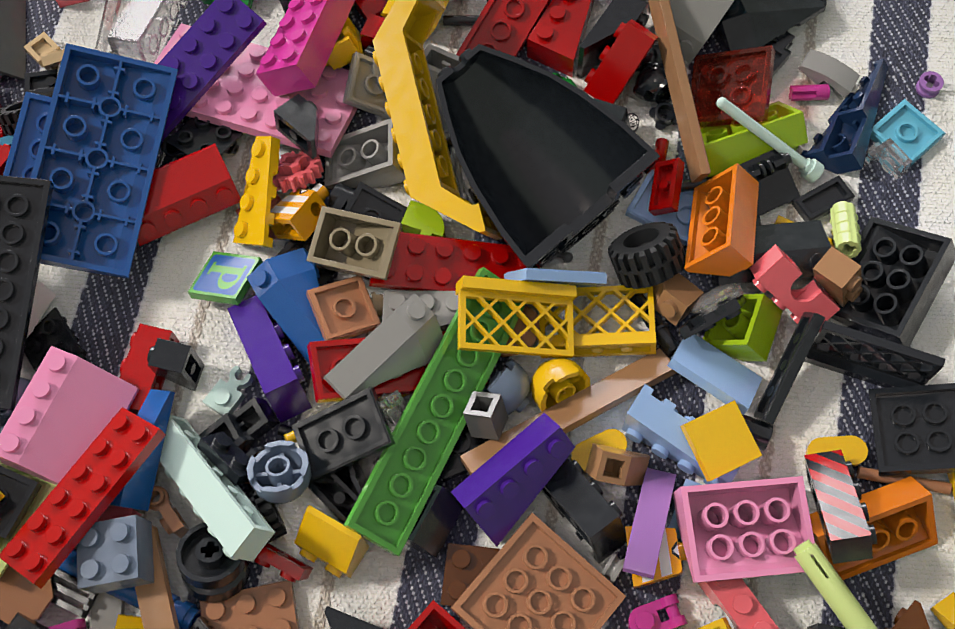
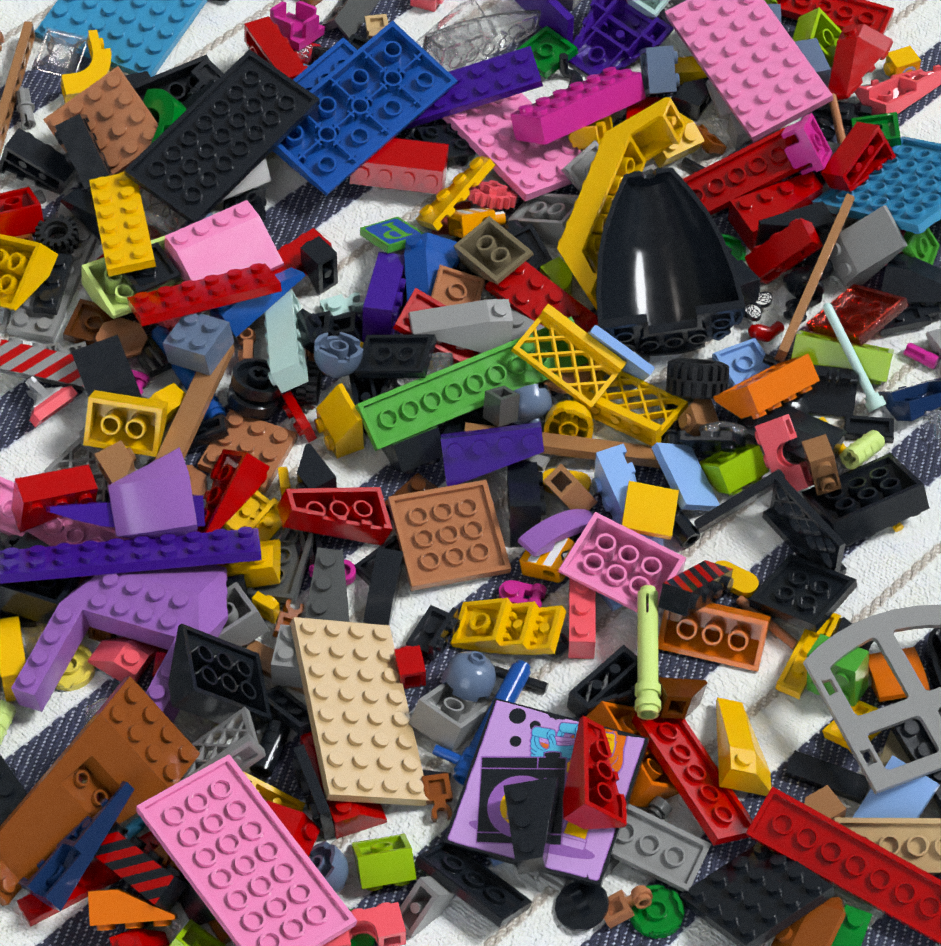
camera: 30 degrees right, 15 degrees down
(299, 123) = (517, 162): black slope -> none
(613, 567) = (514, 550): light grey bush -> none
(666, 187) = (751, 350): red plate -> none

